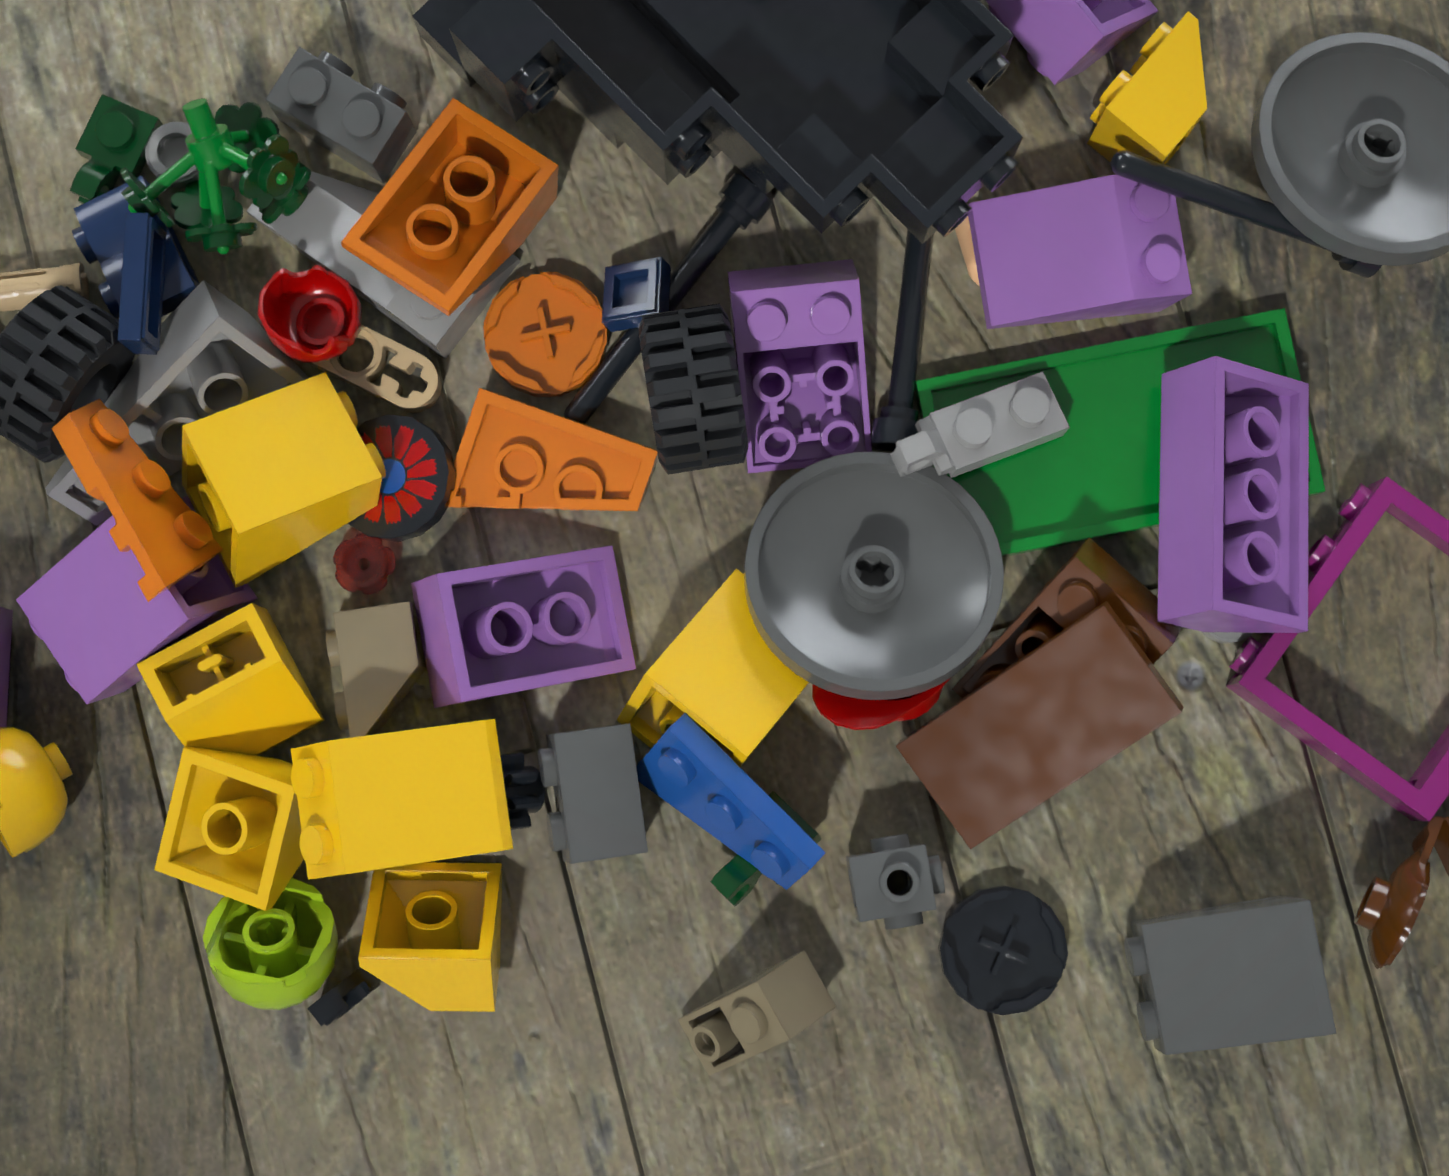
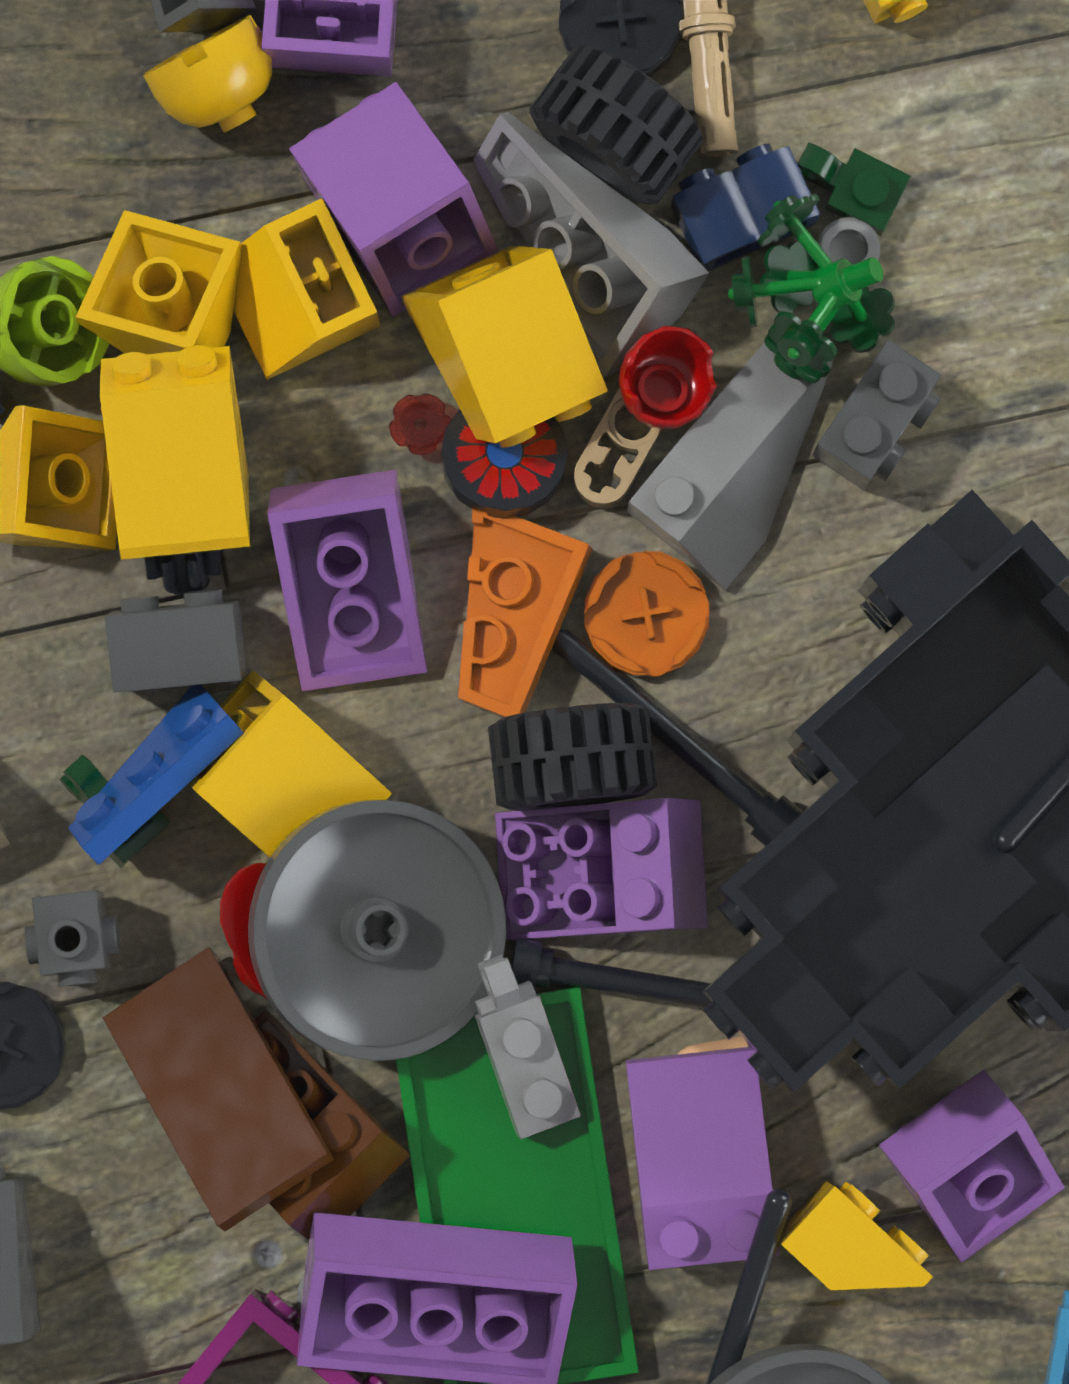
camera: 90 degrees right, 0 degrees up
(142, 284) = (700, 213): dark blue tile -> none
(146, 509) = (471, 214): orange wing -> none
(378, 663) = (319, 434): dark tan slope -> none
(455, 208) = (765, 523): orange slope -> none
(635, 291) = (681, 706): dark blue tile -> none

